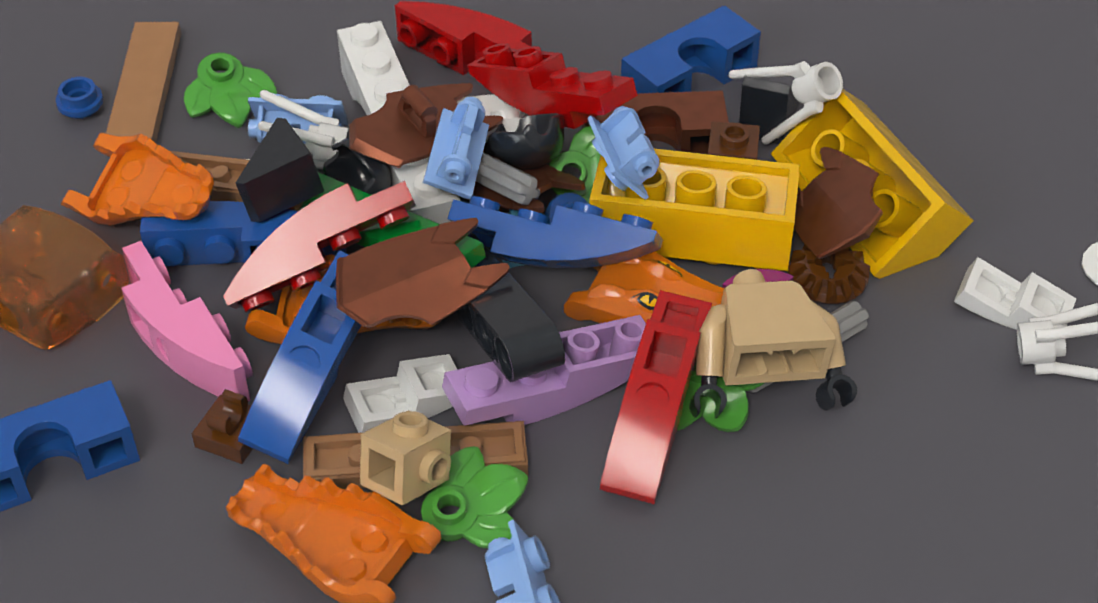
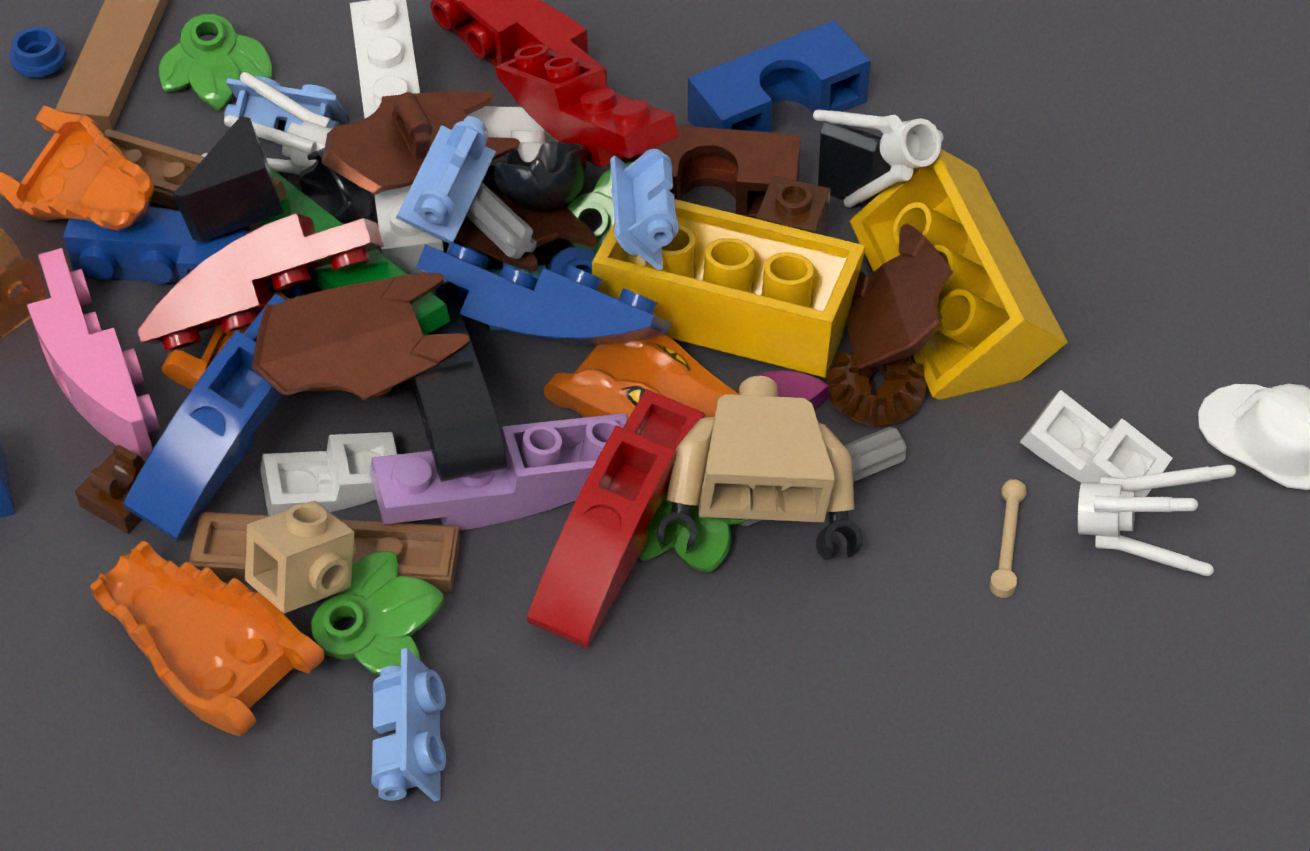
camera: 10 degrees right, 5 degrees up
(972, 409) = (1004, 581): none -> tan hinge

